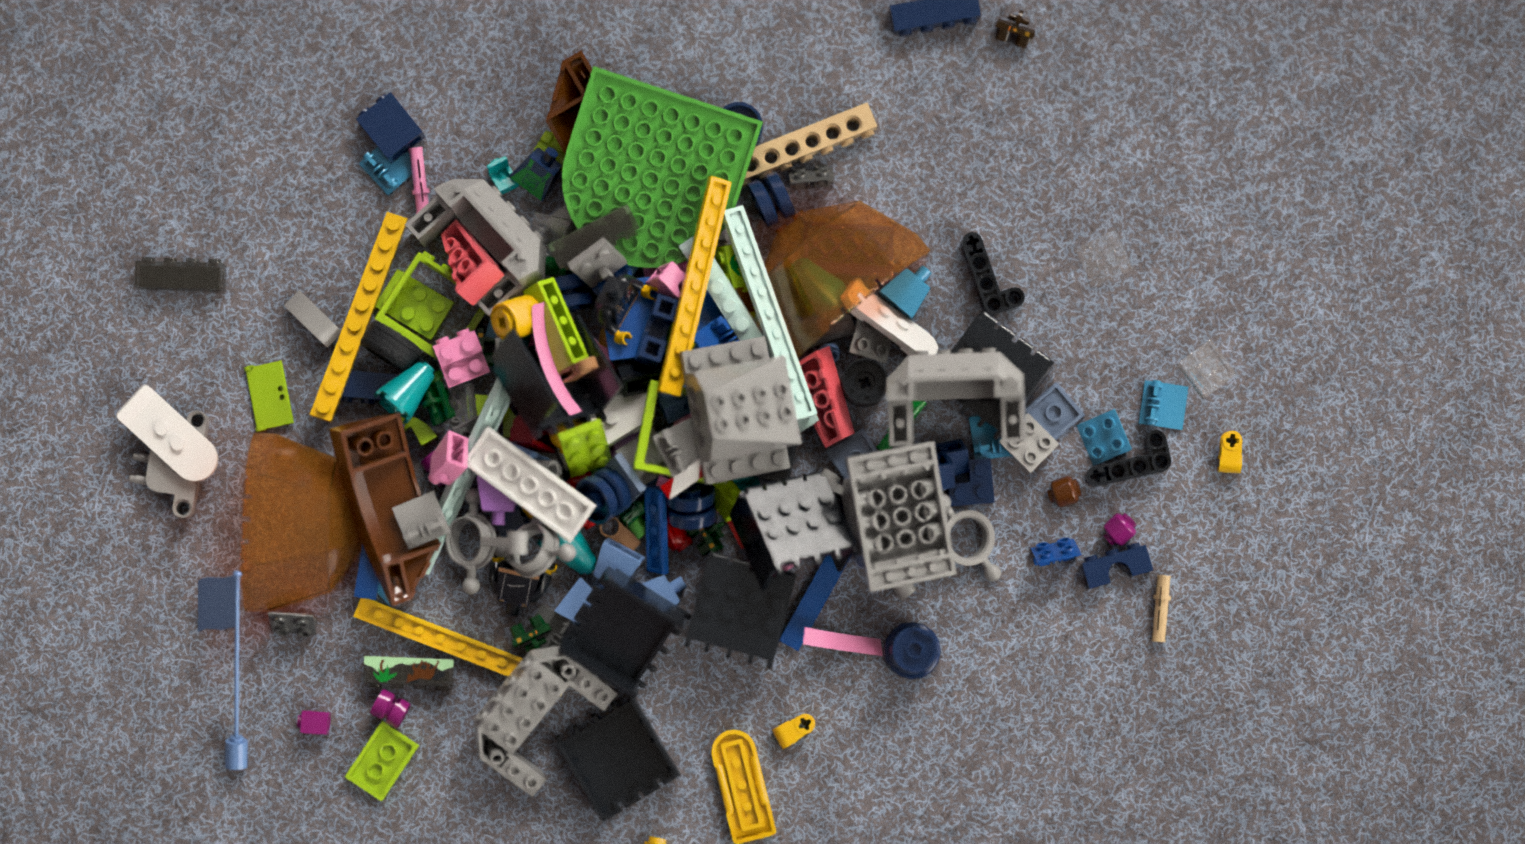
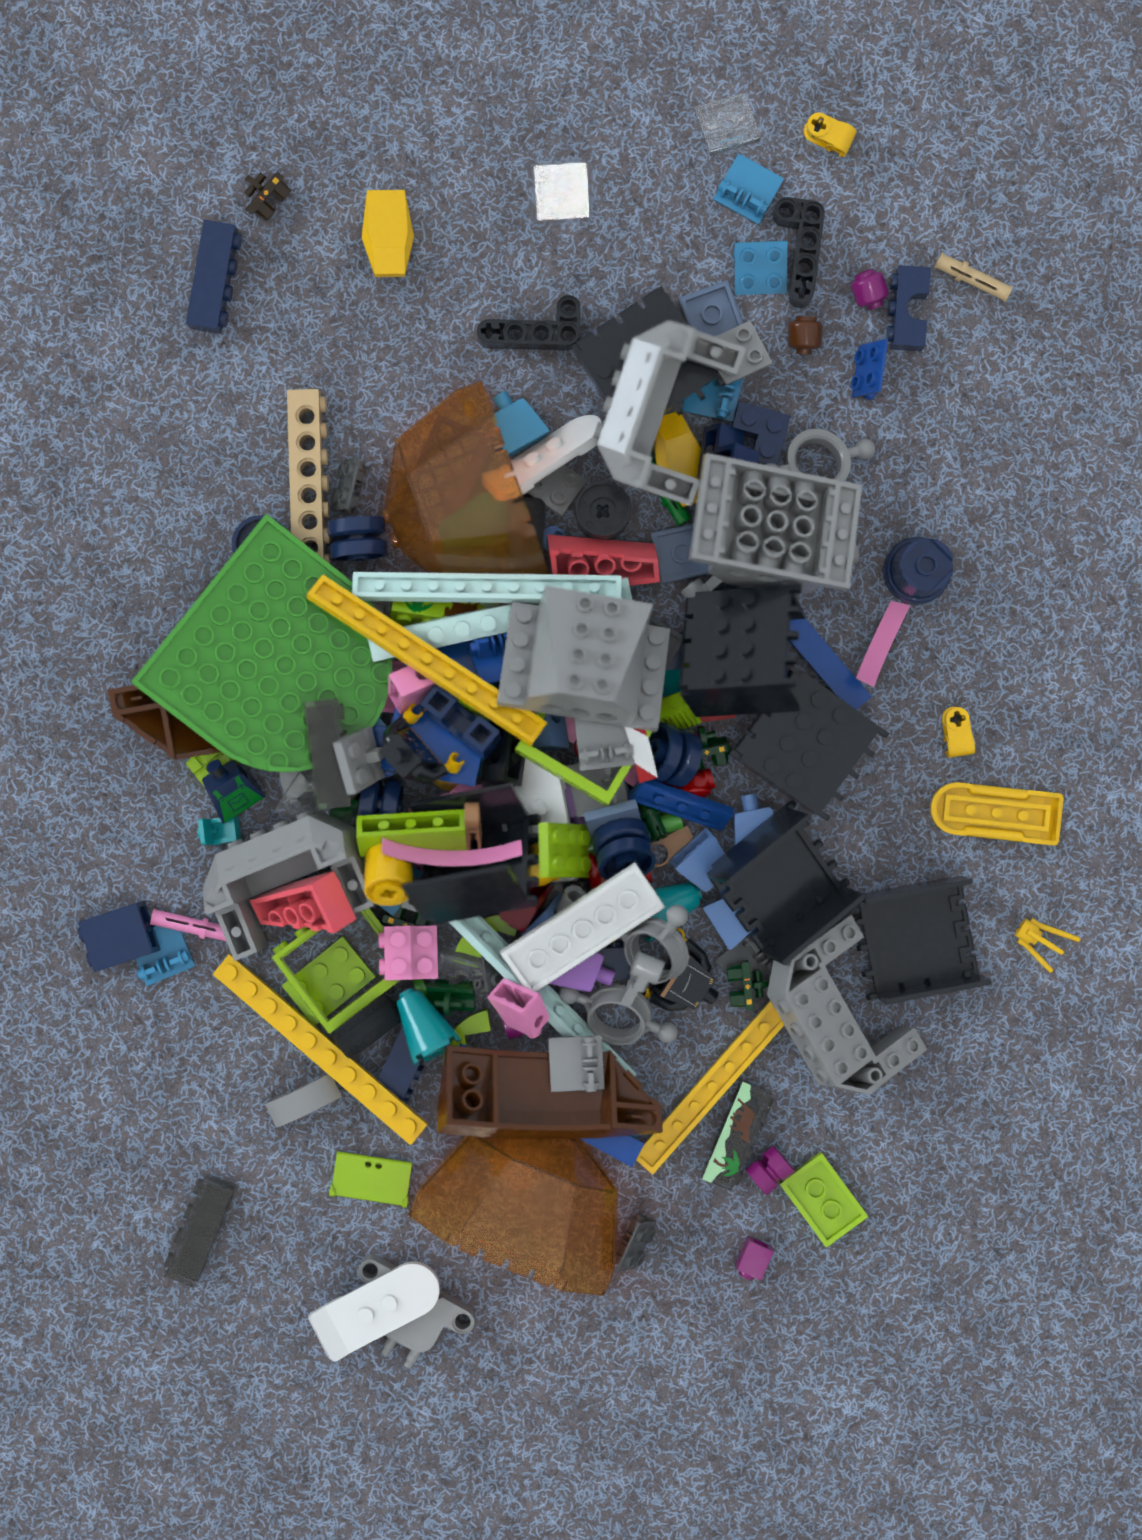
camera: 65 degrees left, 5 degrees up
(220, 611) = (596, 1323): medium blue flag -> none
(937, 422) = (677, 447): none -> yellow piece
(1021, 135) = (387, 232): none -> yellow piece

